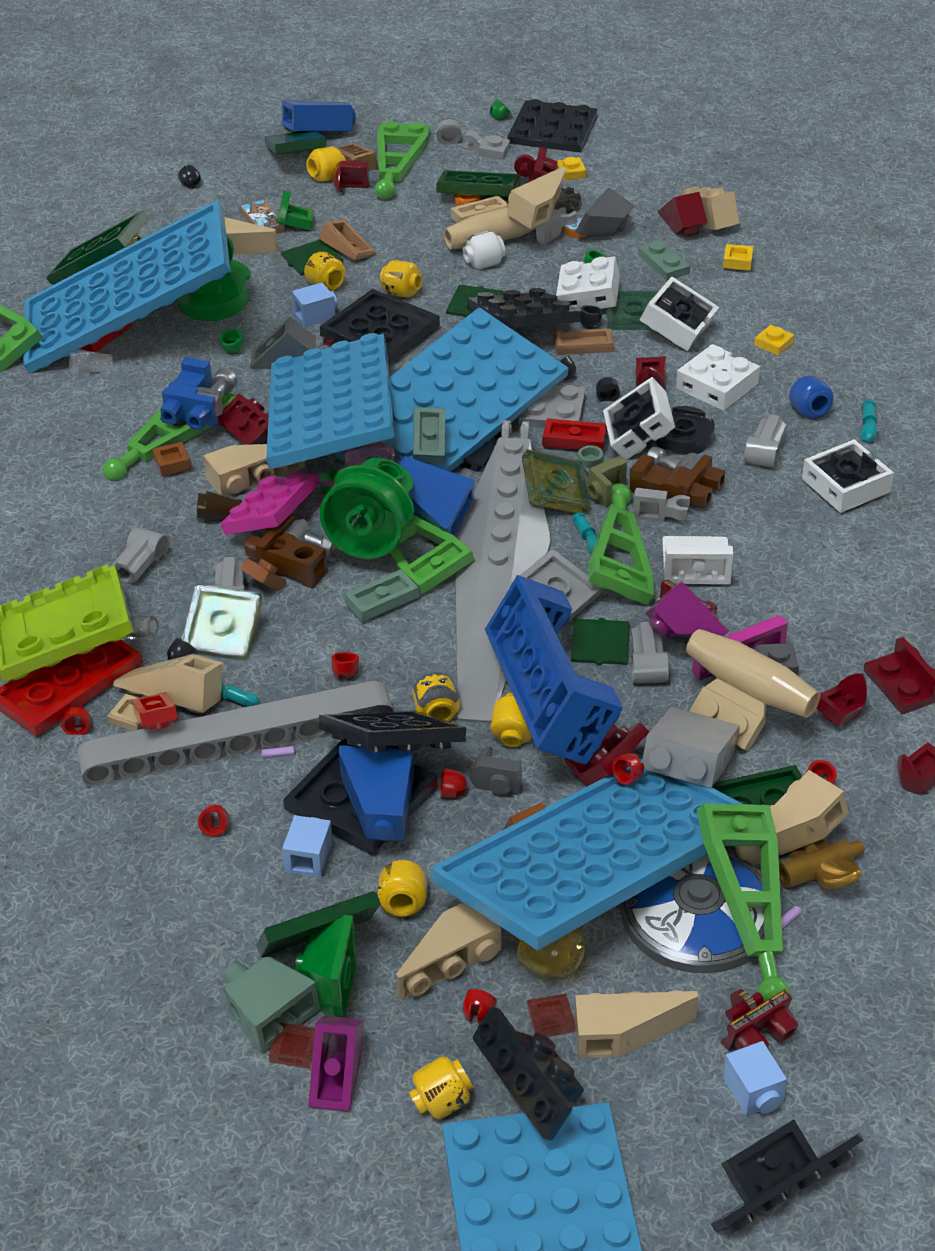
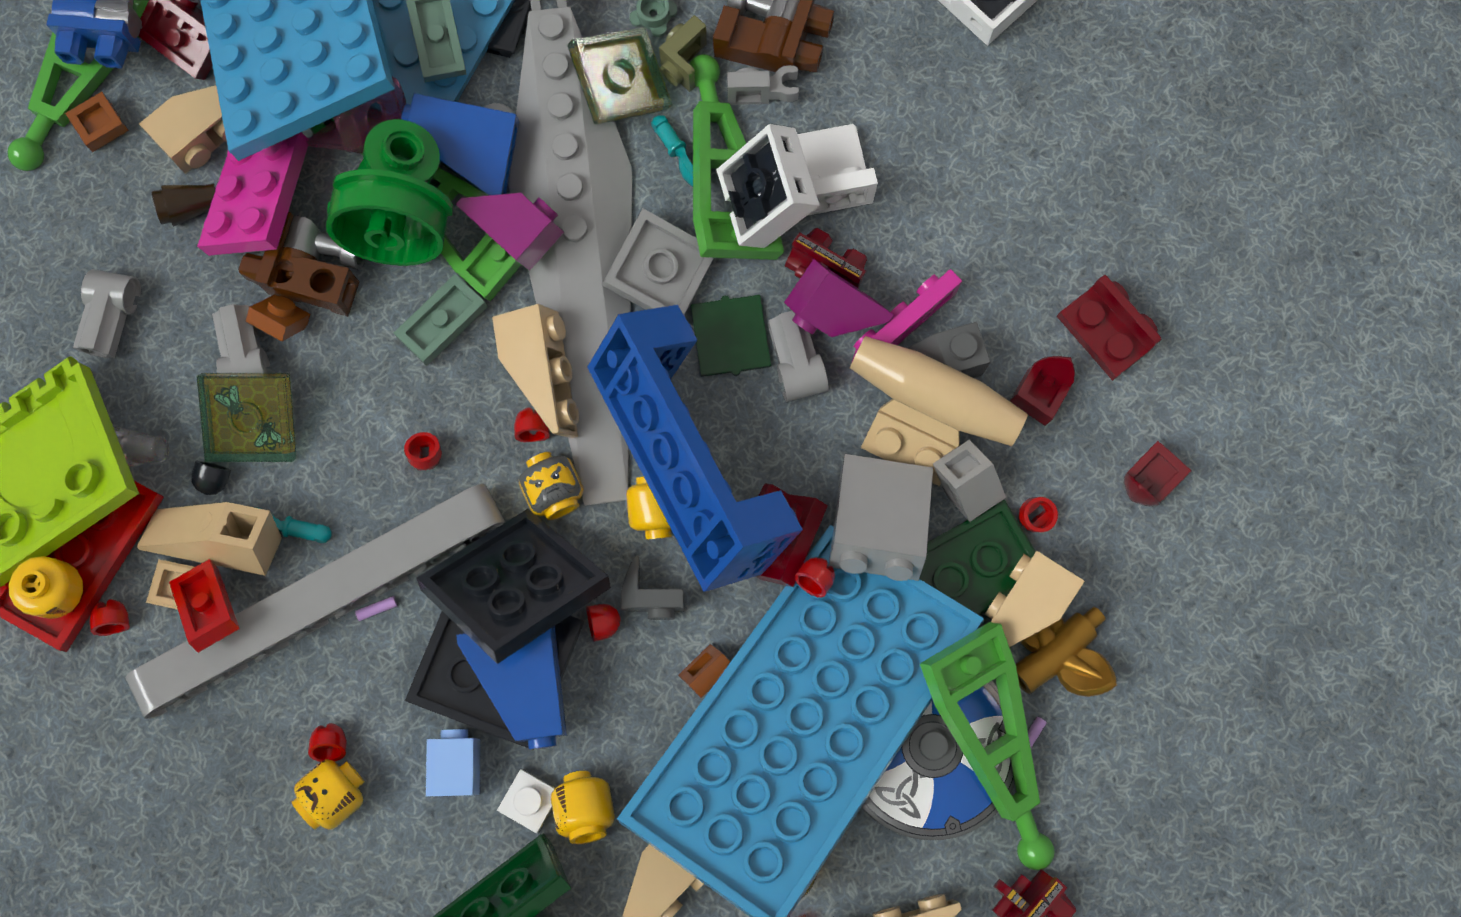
camera: 15 degrees left, 35 degrees up
(45, 677) = (45, 587): none -> yellow head
(205, 843) = (328, 794): none -> yellow head
(356, 881) = (527, 801): none -> white plate
(438, 665) = (530, 421): none -> red hinge
(448, 615) = (534, 355): none -> tan slope
(454, 537) = (515, 224): none -> magenta slope
(648, 540) = (767, 186): none -> piece
(768, 740) = (969, 480): none -> light grey brick

